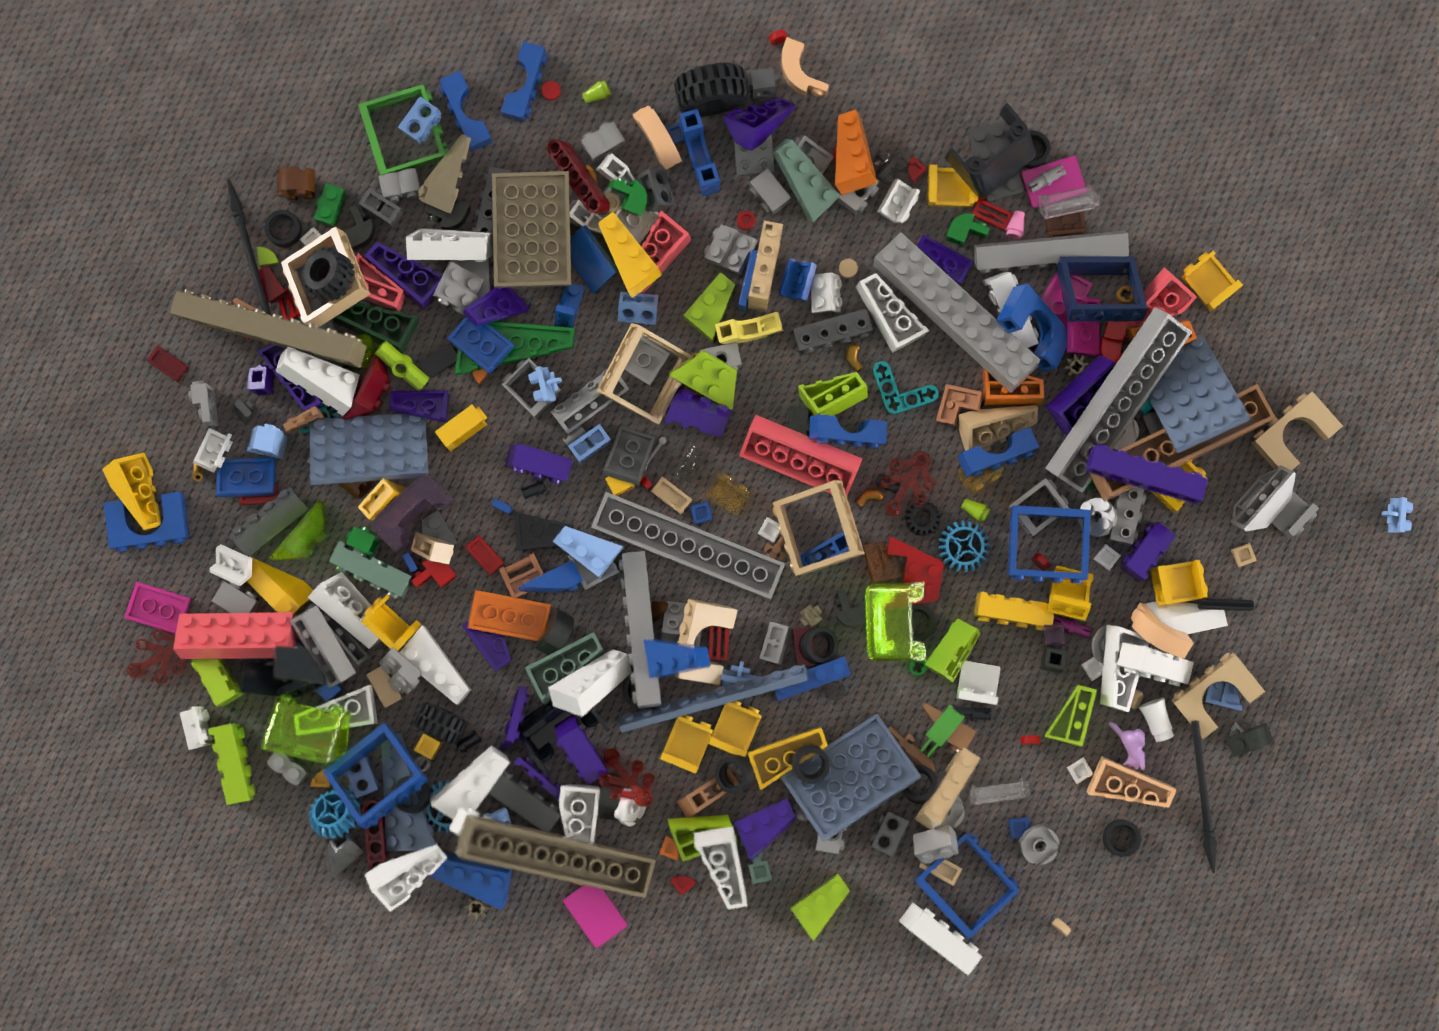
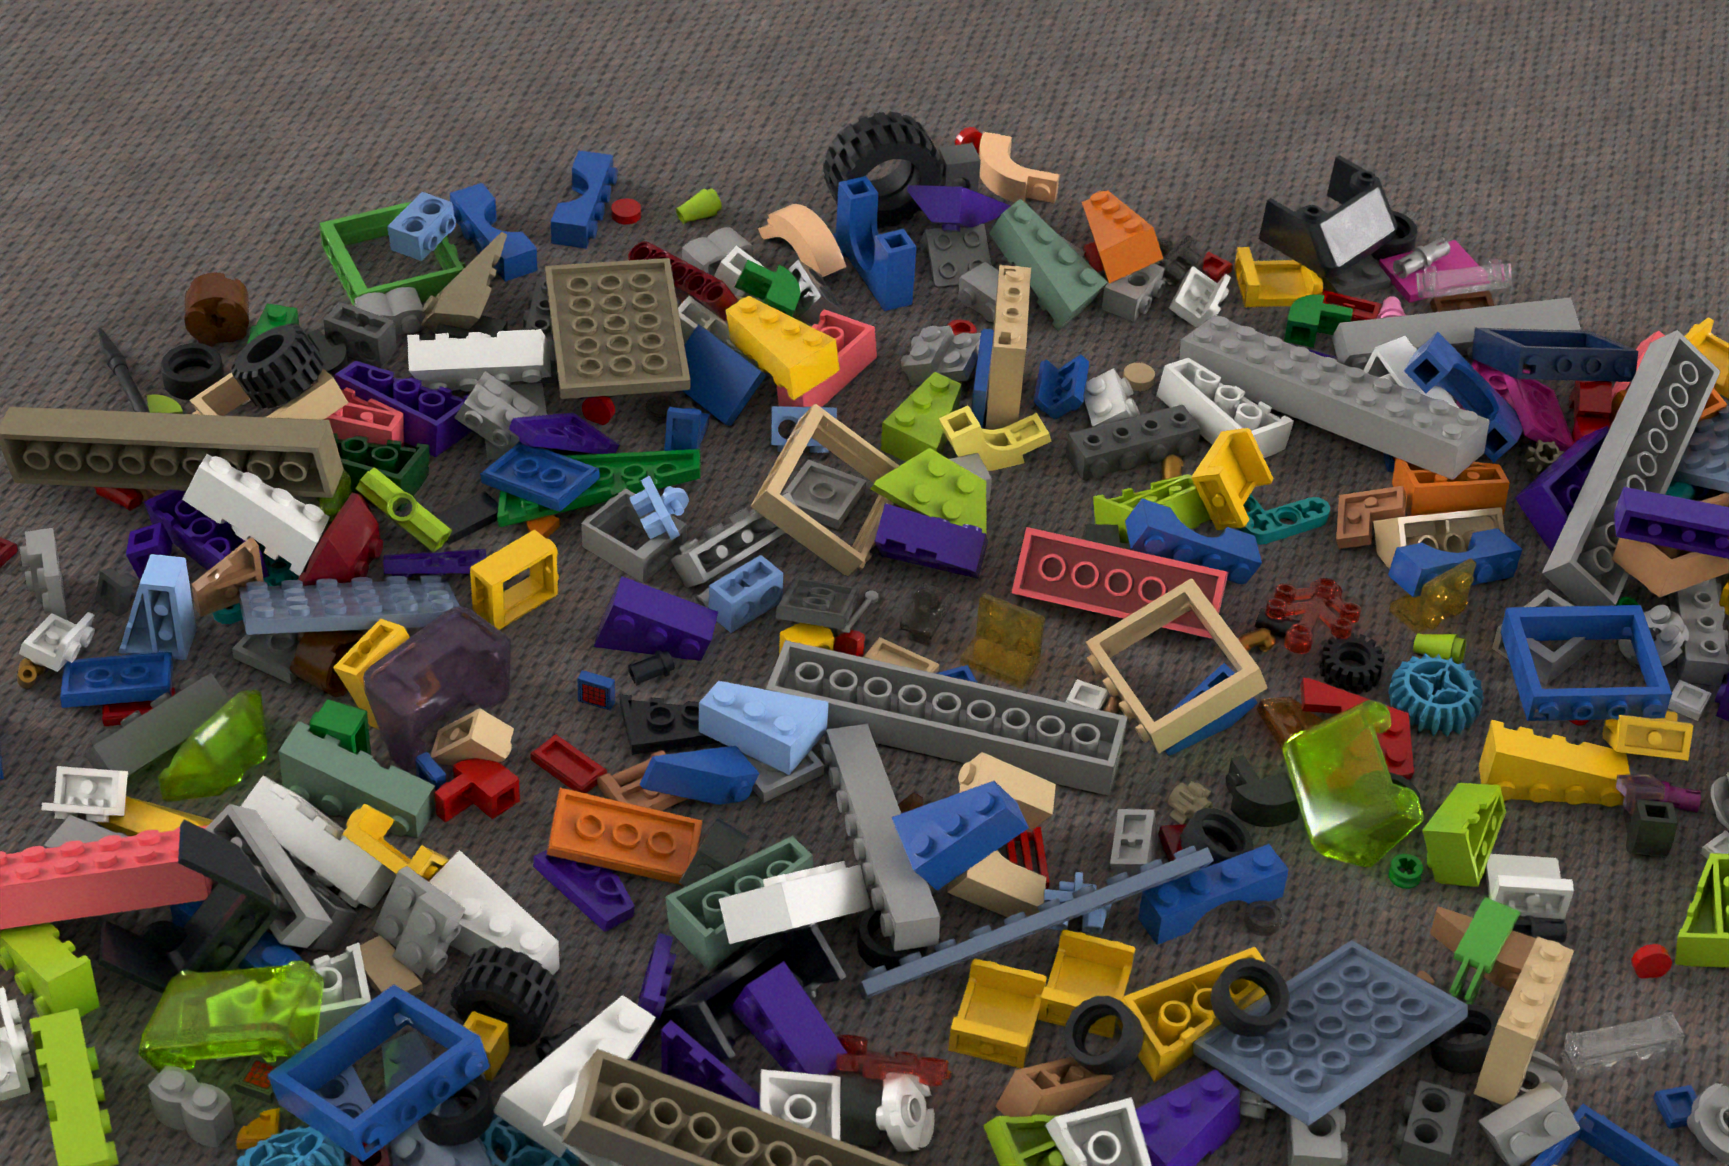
camera: 10 degrees left, 40 degrees down
(877, 382) = (1229, 476): none -> yellow panel

